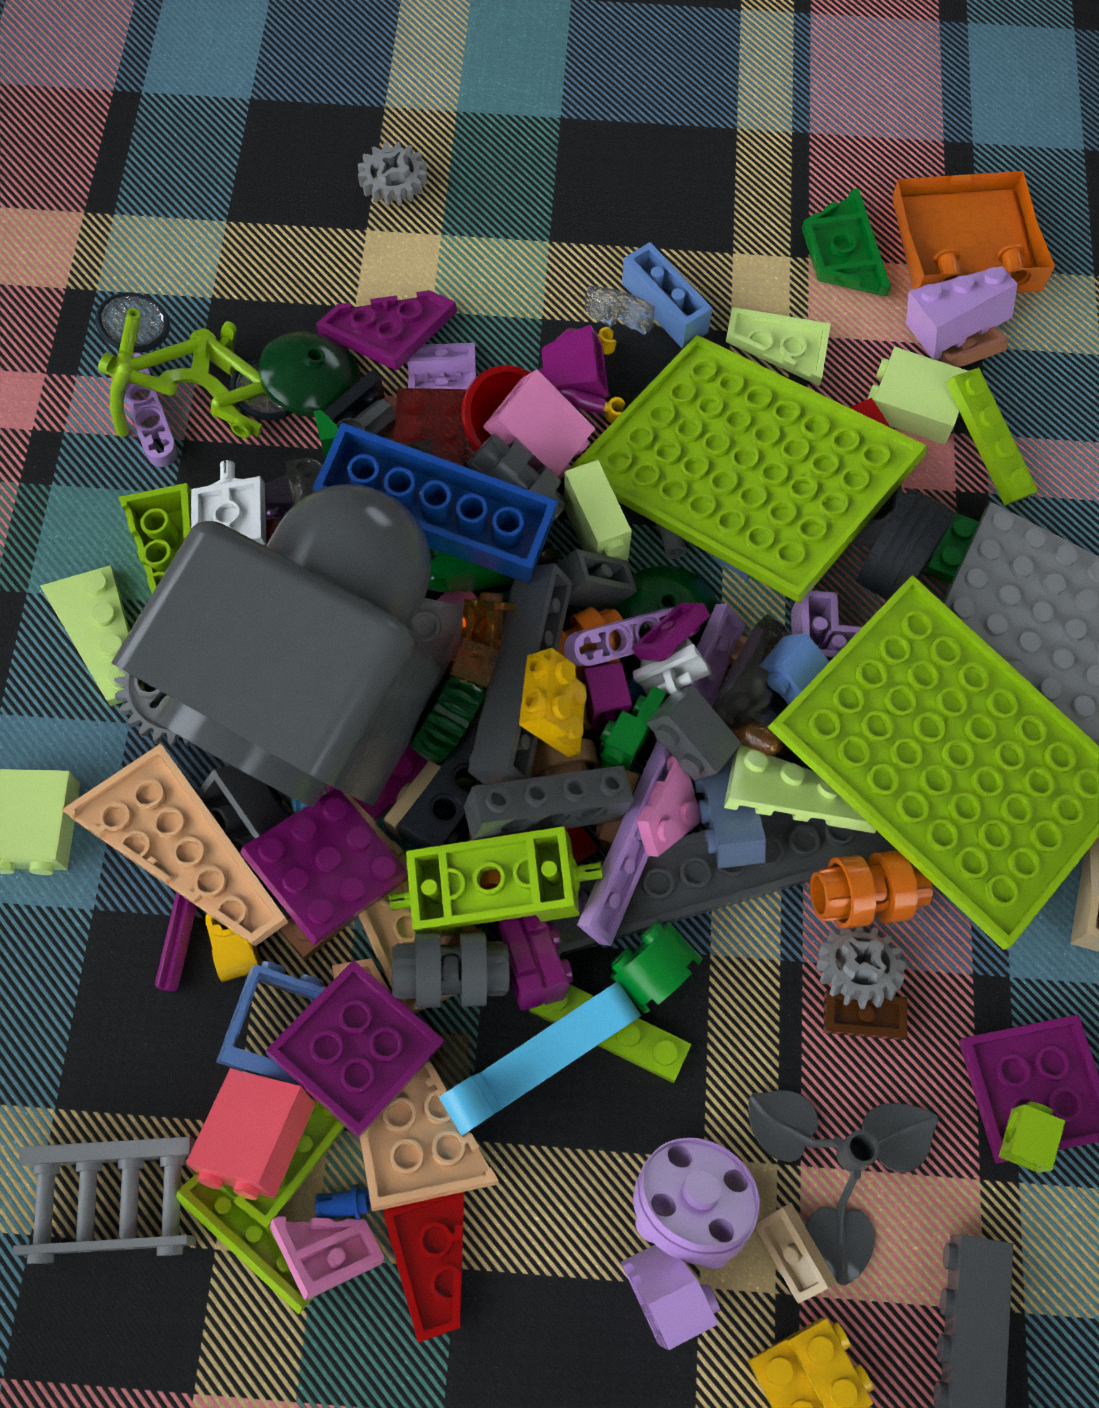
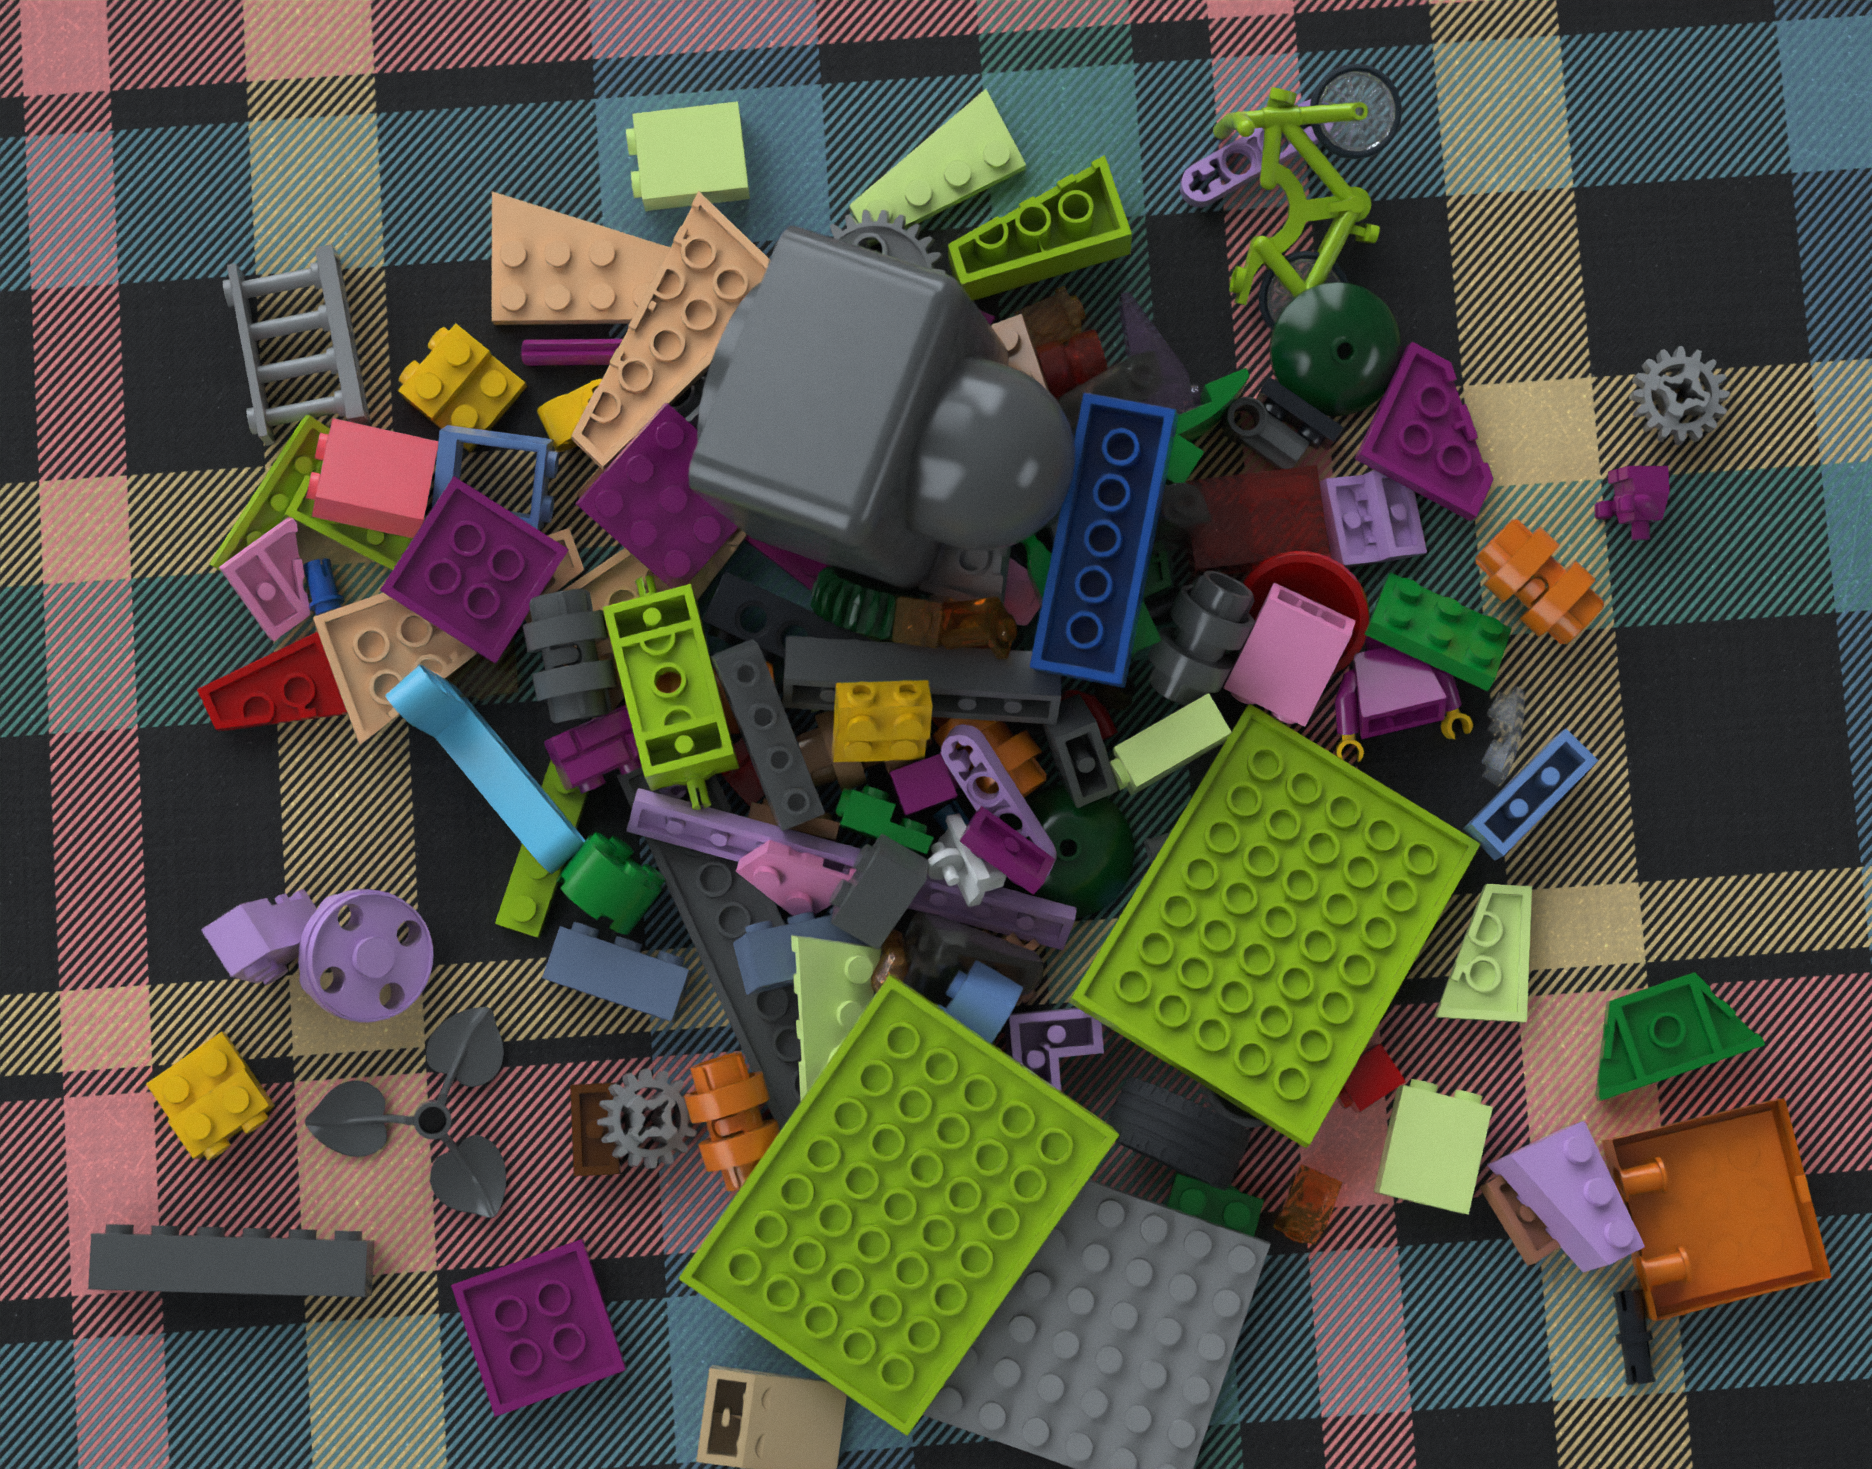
camera: 80 degrees right, 15 degrees up
(100, 942) = (565, 267): none -> light nougat wing
(179, 1049) = (460, 383): none -> yellow plate
(232, 503) = (1092, 294): white plate -> none
(407, 797) = (773, 579): tan plate -> none
(460, 206) = (1638, 498): none -> magenta piece
(502, 271) = (1560, 608): none -> orange piece
(539, 331) = (1438, 631): none -> green plate
(730, 976) = (618, 972): none -> sand blue brick
(795, 1253) = (331, 1069): tan plate -> none
(957, 480) = (1308, 1205): none -> clear orange bracket
(991, 436) = (1376, 1245): lime plate -> none
(1032, 1137) = (476, 1313): lime brick -> none
(1058, 295) = (1634, 1337): none -> black pin

